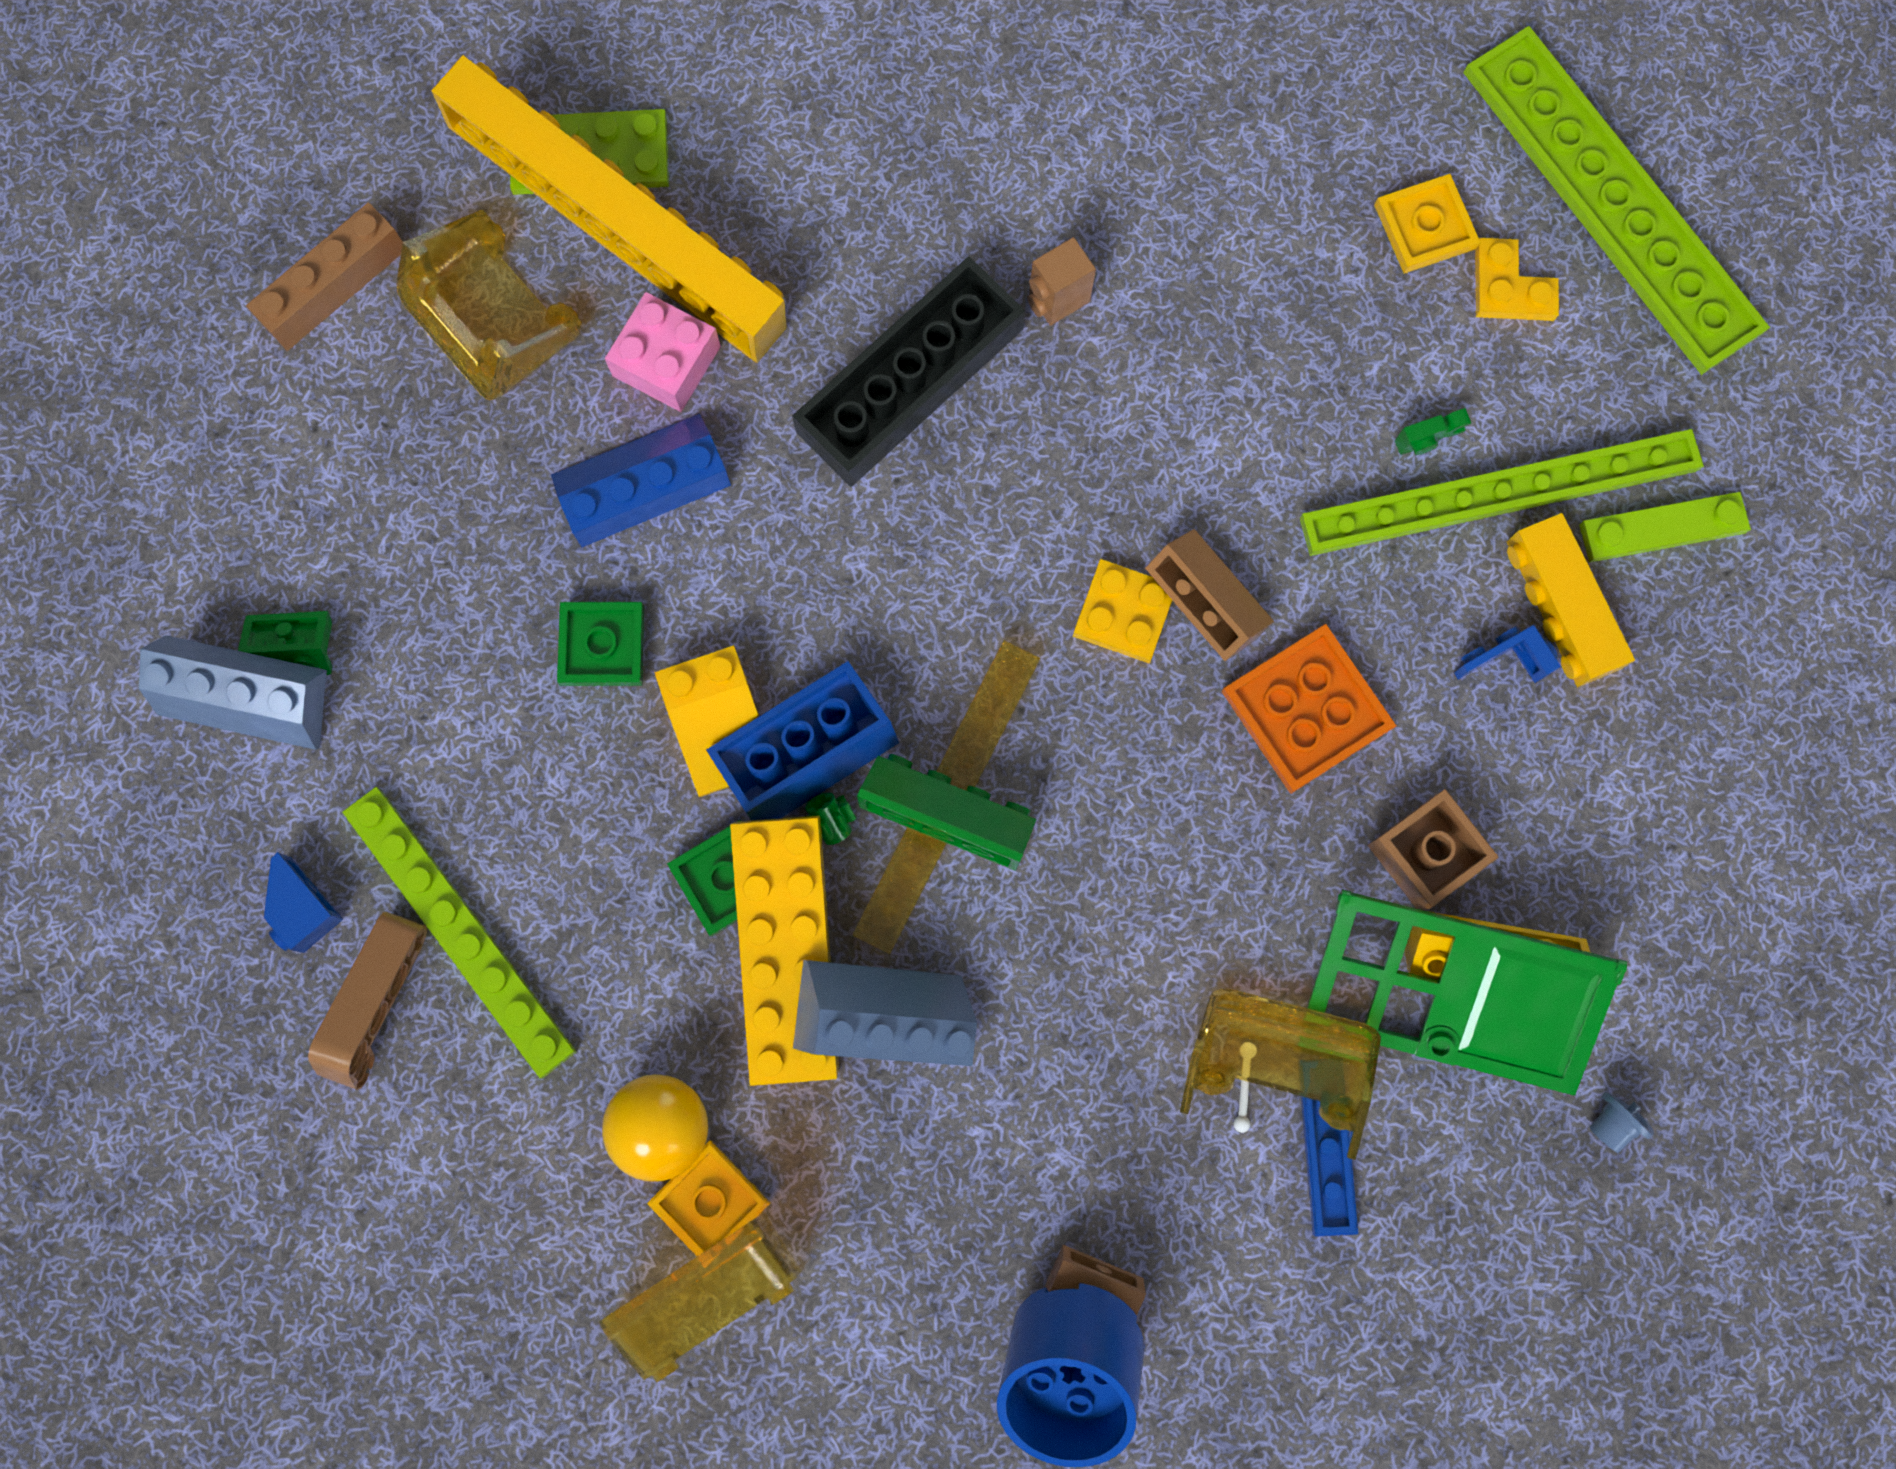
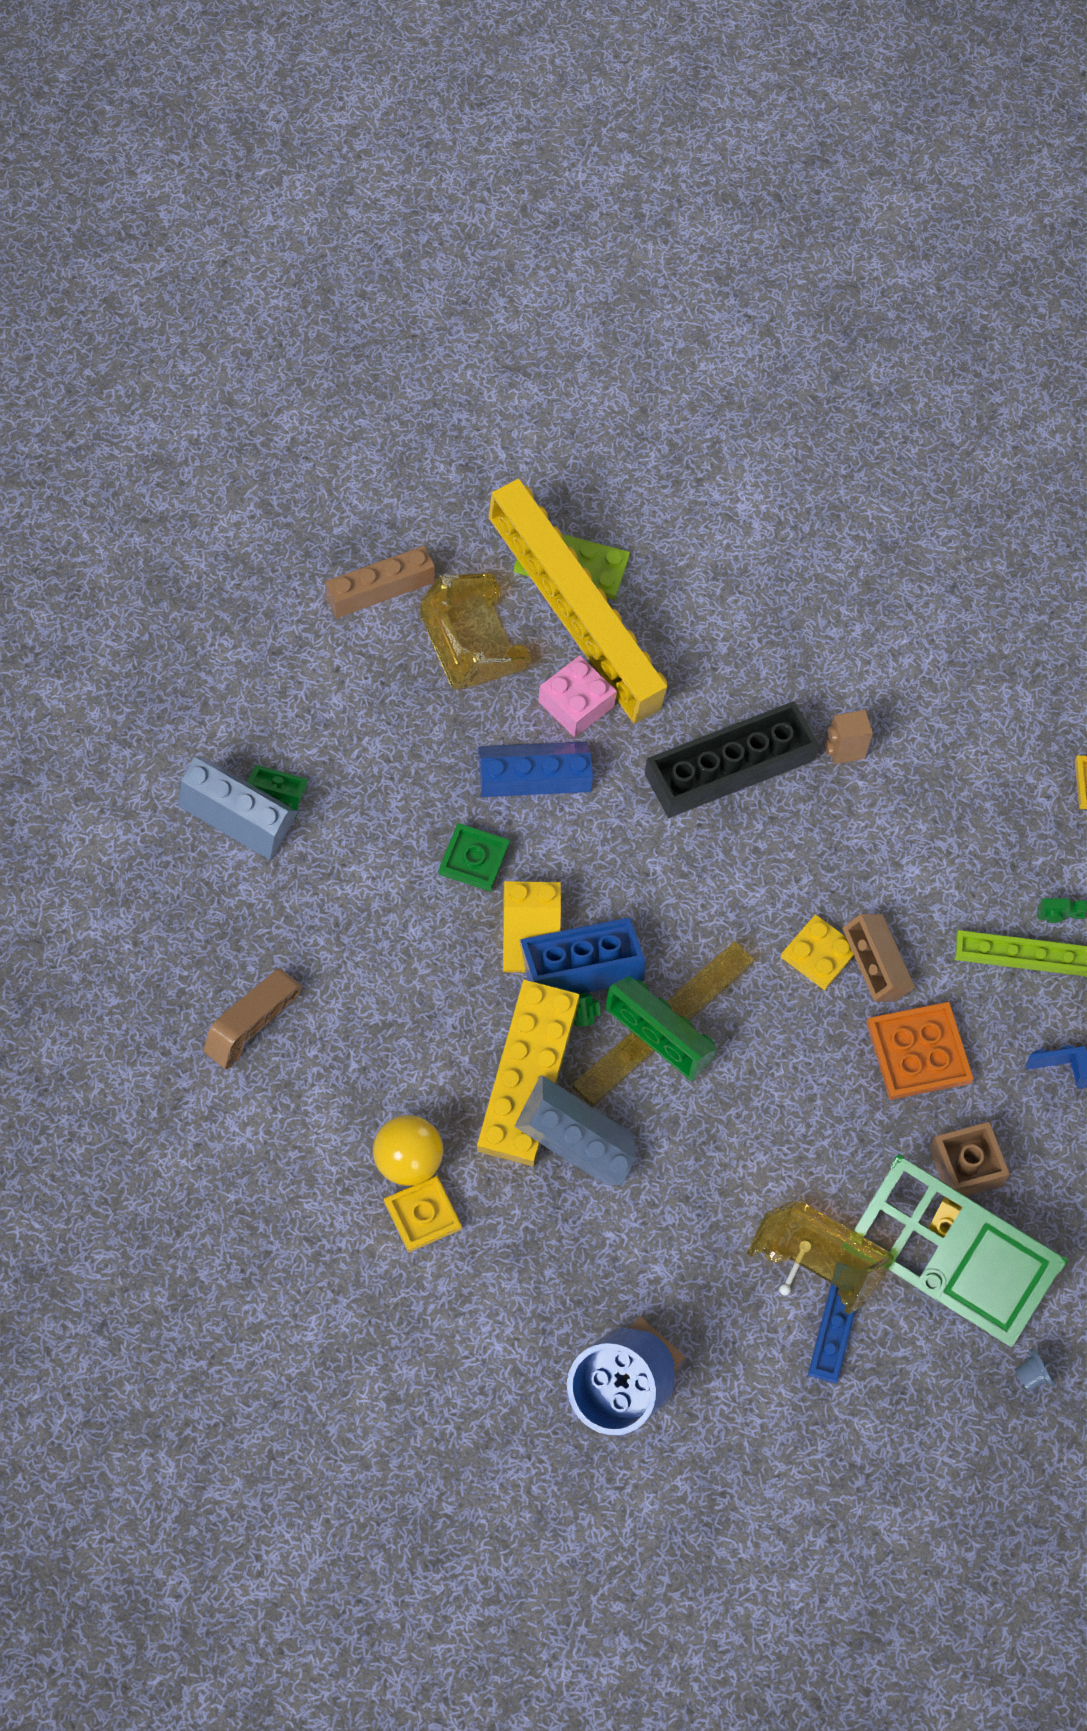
camera: 15 degrees right, 15 degrees down
(296, 907) = (226, 947): blue slope -> none
(459, 933) = (321, 1000): lime plate -> none
(702, 1298) = (401, 1250): clear yellow windscreen -> none
(708, 881) = (492, 1021): green plate -> none

